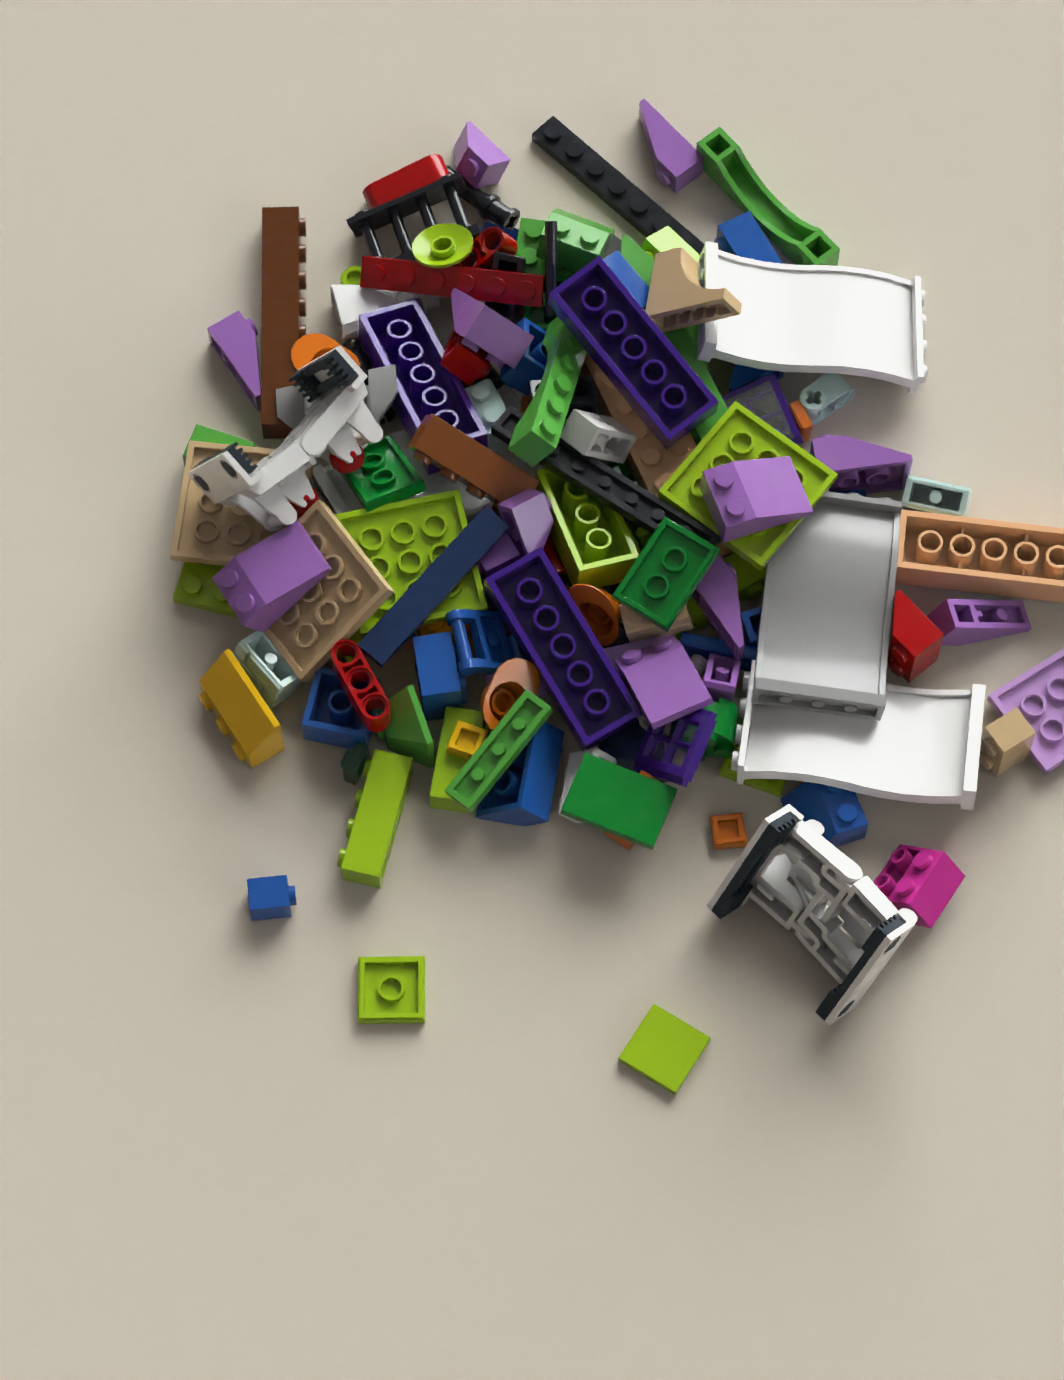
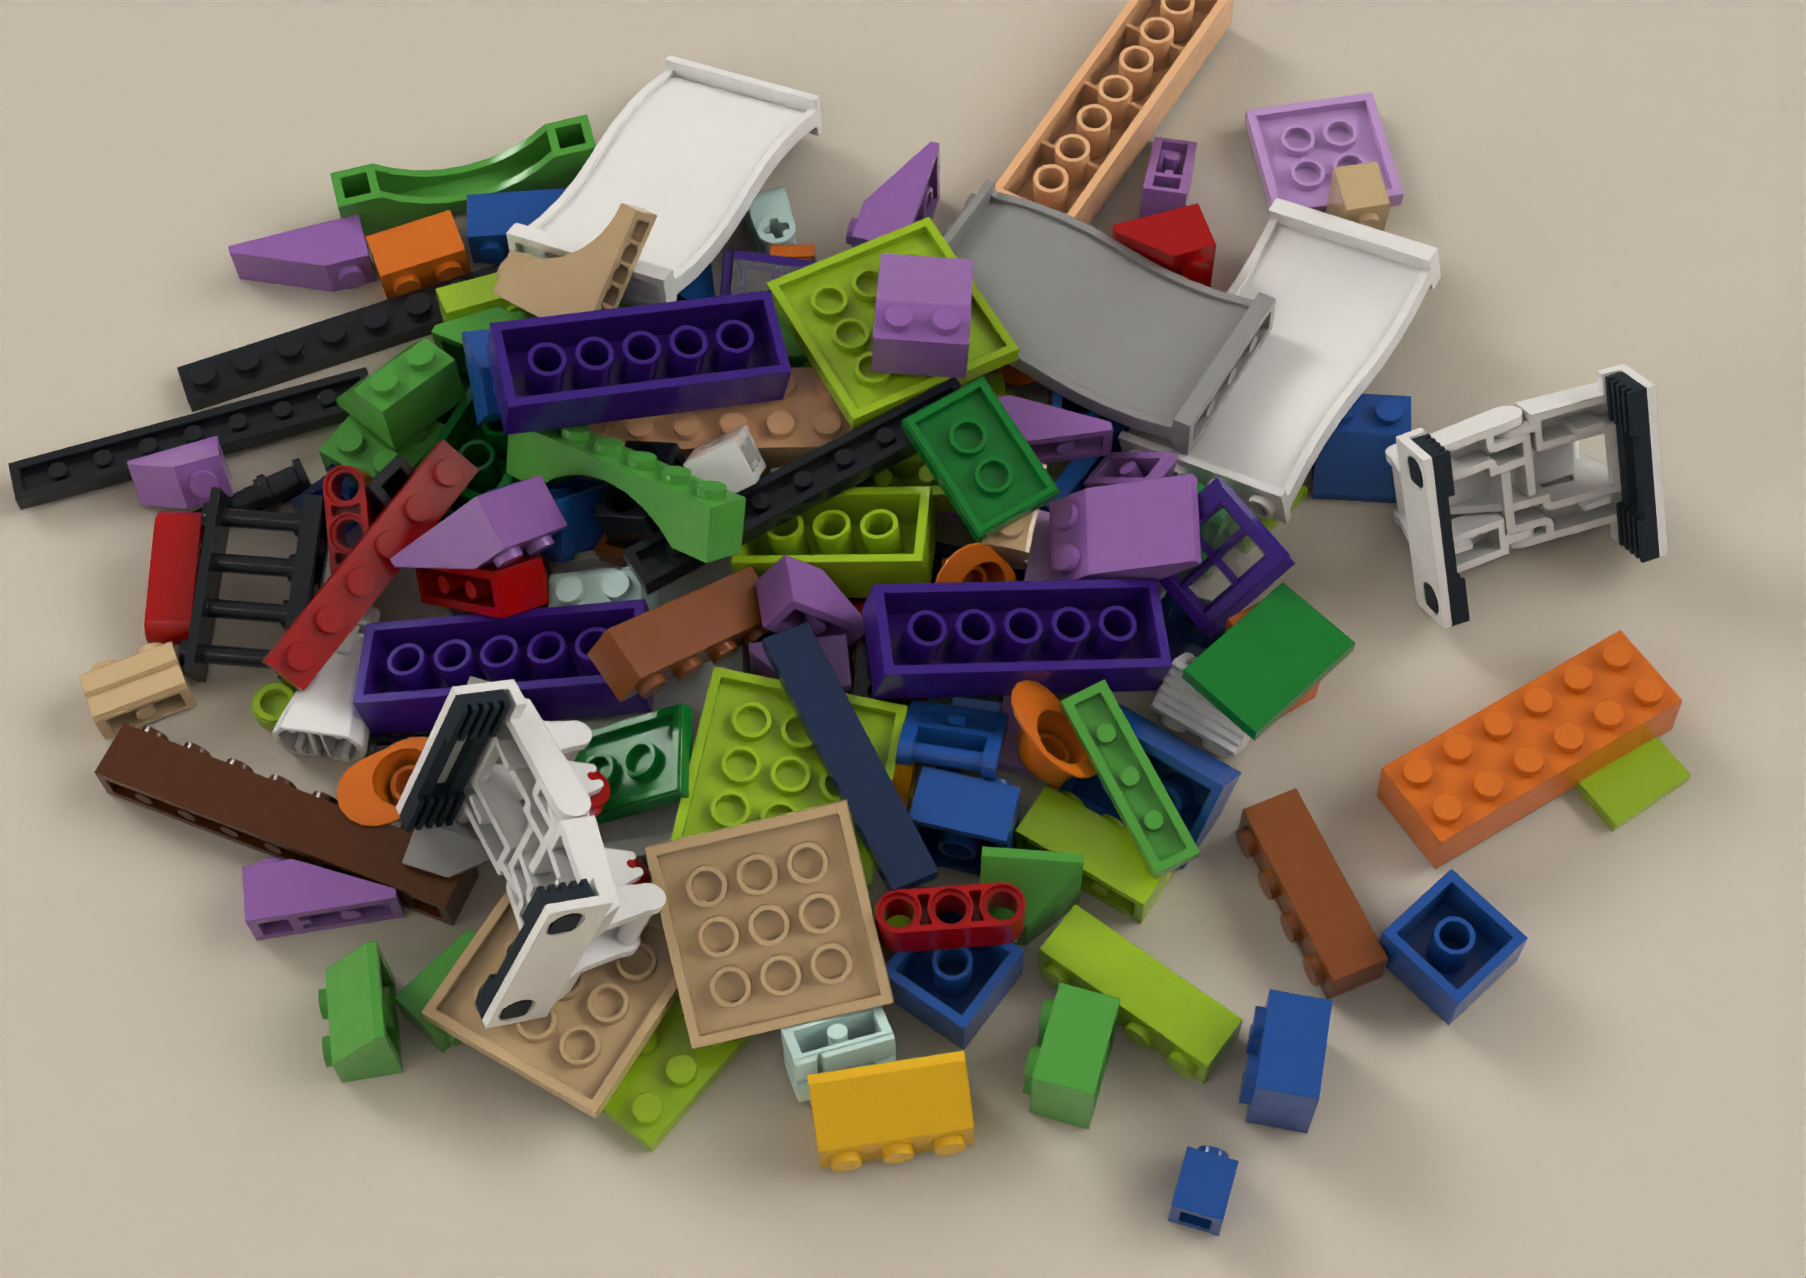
camera: 65 degrees left, 5 degrees down
(175, 418) = (361, 1016): none -> bright green slope
(272, 576) = (722, 965): medium lavender slope -> none
(315, 792) = (1071, 1054): none -> bright green brick
(328, 202) = (137, 688): none -> tan brick
(354, 762) = (1034, 985): clear green plate -> none
(363, 910) = (1285, 1060): none -> blue brick
(391, 990) = (1405, 1080): lime tile -> none
(442, 245) = (316, 548): lime dish -> none
(466, 740) = (1085, 821): yellow tile -> none
(481, 980) = (1451, 946): none -> blue brick
(486, 891) = (1311, 894): none -> dark orange brick
(525, 163) = (236, 424): none -> black plate
(550, 263) = (436, 425): black bar -> none
(643, 984) = (1527, 748): none -> orange brick
(696, 206) = (418, 254): none -> orange brick
(728, 831) = (1334, 571): orange tile -> none
(919, 881) = (1495, 374): dark pink slope -> none
(936, 497) = (984, 156): light aqua brick -> none

